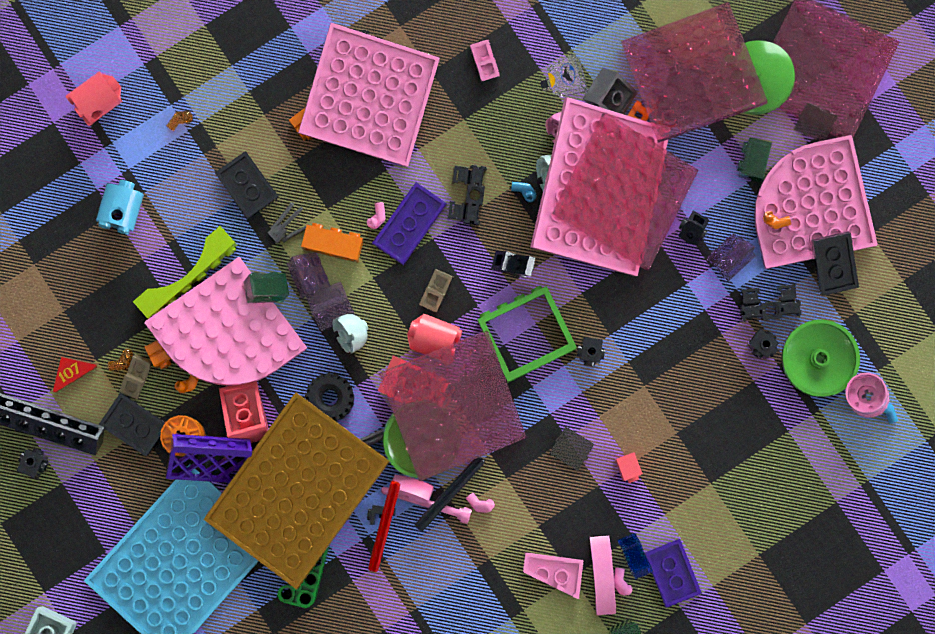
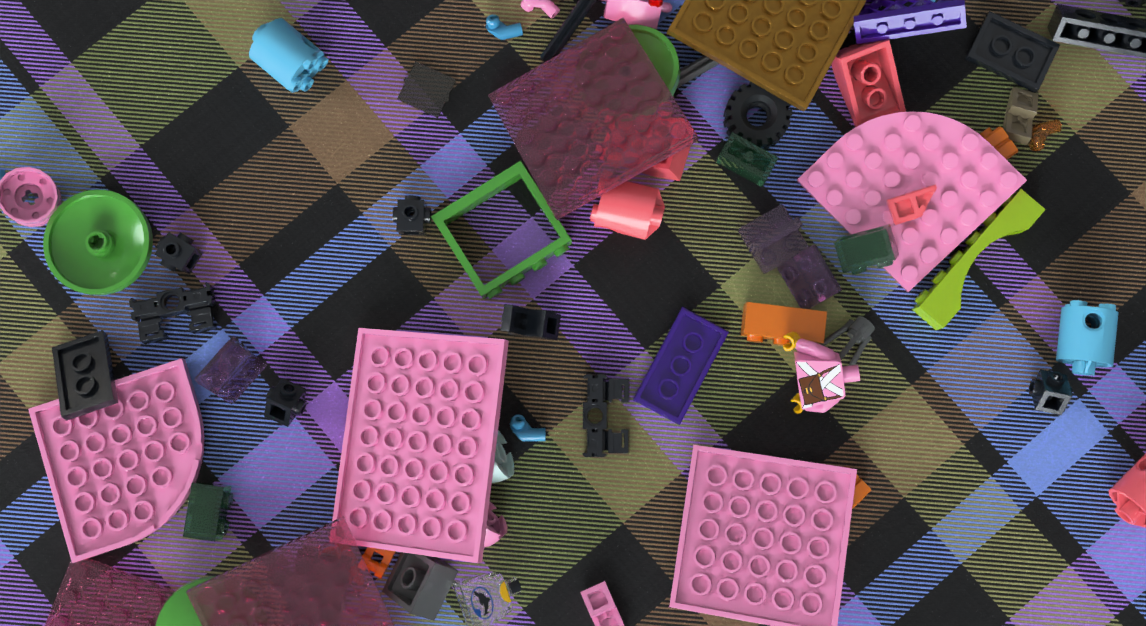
camera: 175 degrees right, 0 degrees up
(70, 371) = (1108, 113): red tile -> none
(151, 173) = (1050, 392): none -> black brick
(179, 118) = (1022, 477): clear orange arm -> none
(180, 424) = (943, 54): orange wheel -> none
(186, 385) = (953, 109): orange arm -> none
(230, 315) = (910, 205): none -> coral tile
(246, 185) = (914, 392): black plate -> none
(315, 200) = (818, 375): none -> torso
(342, 364) = (747, 159): none -> clear green brick
(351, 332) = (740, 205): light aqua cylinder -> none
(378, 218) = (724, 368): bright pink arm -> none
(436, 290) = (632, 277): dark tan slope -> none
(511, 486) = (501, 30): none -> dark azure arm
(625, 191) = (384, 441): clear pink plate -> none
(628, 467) = (347, 71): coral brick -> none
(672, 482) = (286, 55): none -> medium azure cylinder
(774, 222) = (171, 422): orange arm -> none
(815, 122) = (124, 575): clear smoke piece -> none

